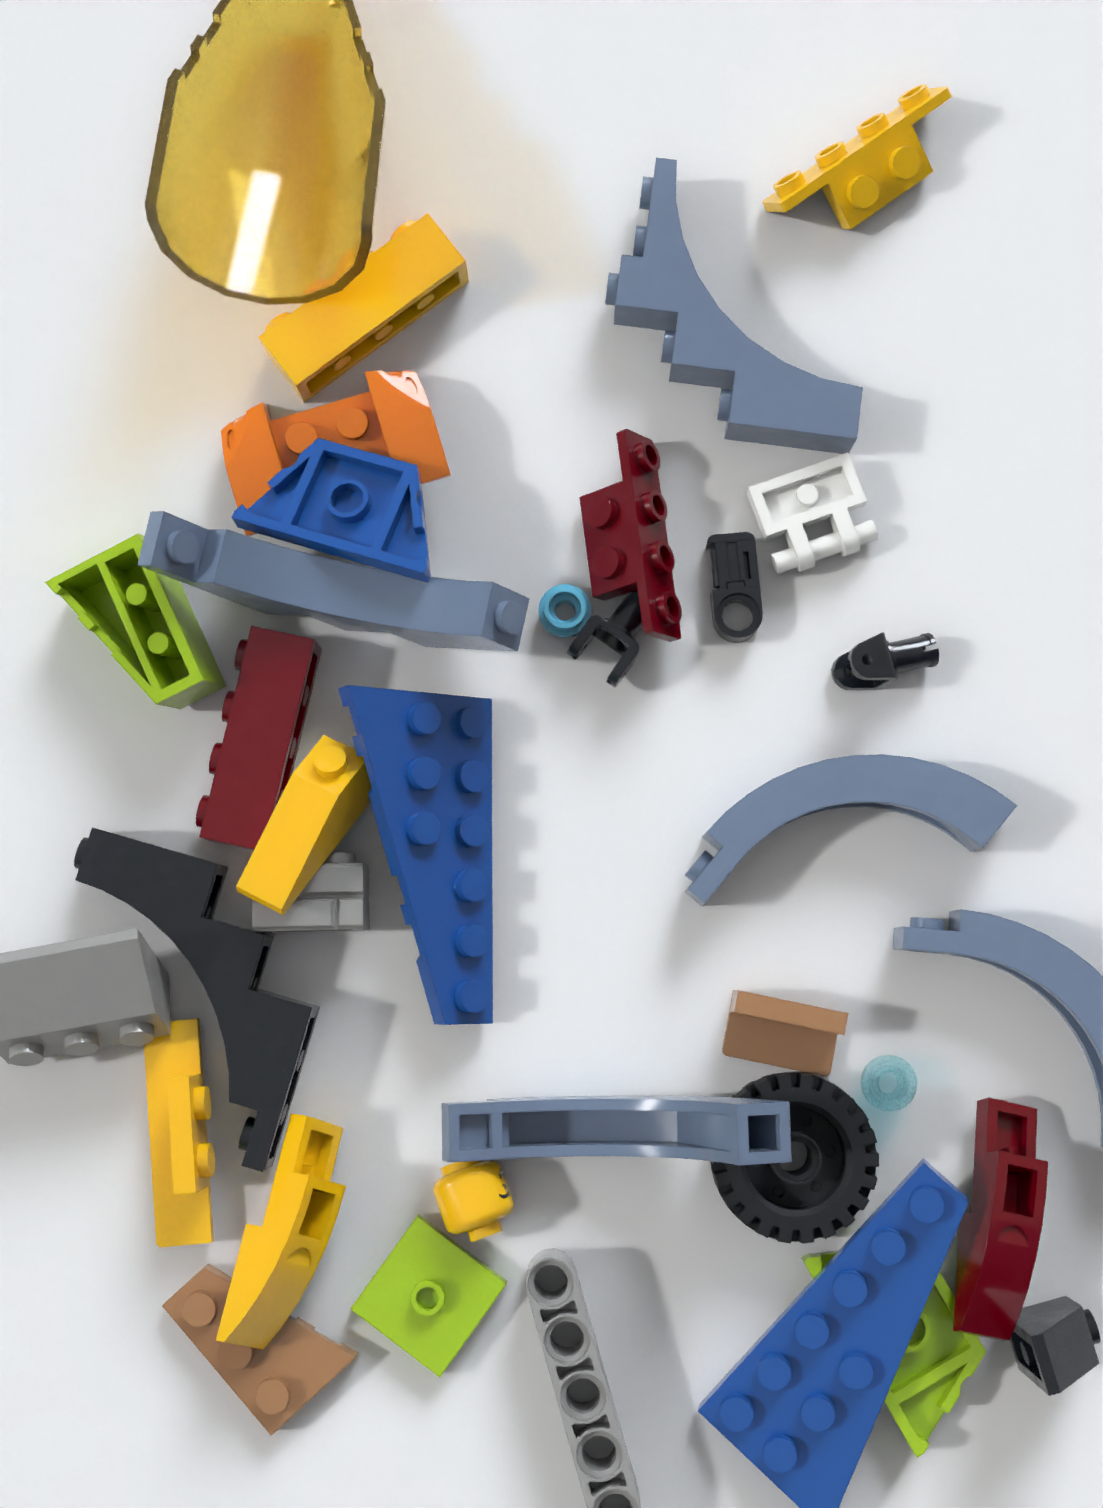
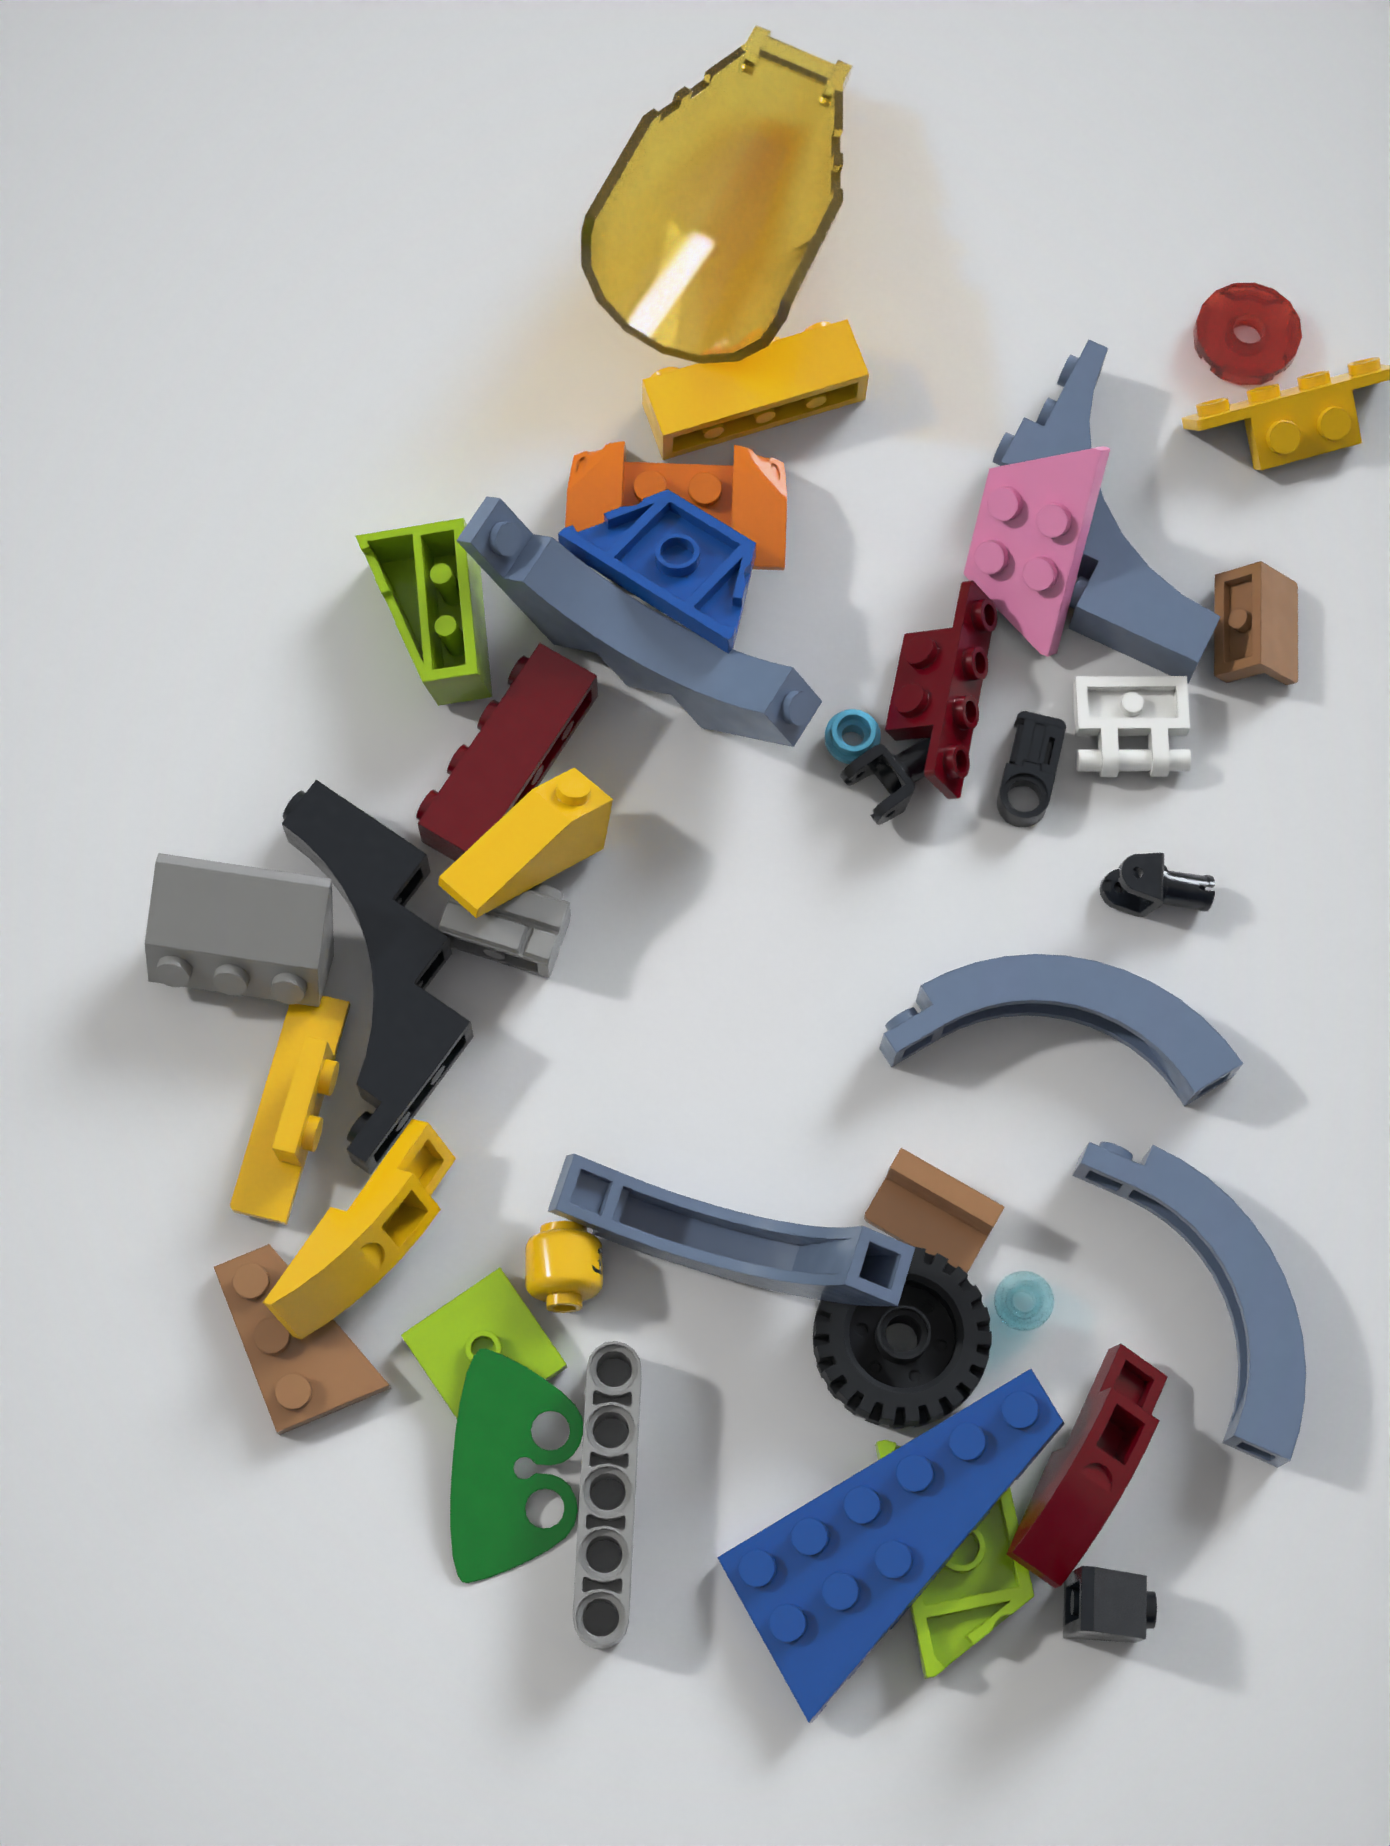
camera: 10 degrees right, 10 degrees down
(435, 822) = (654, 892): blue wing -> none
(475, 1424) = (486, 1495): none -> green piece
(670, 370) = (1034, 539): none -> bright pink wing
(801, 72) = (1254, 307): none -> clear red tile
(894, 379) = (1256, 624): none -> medium nougat panel

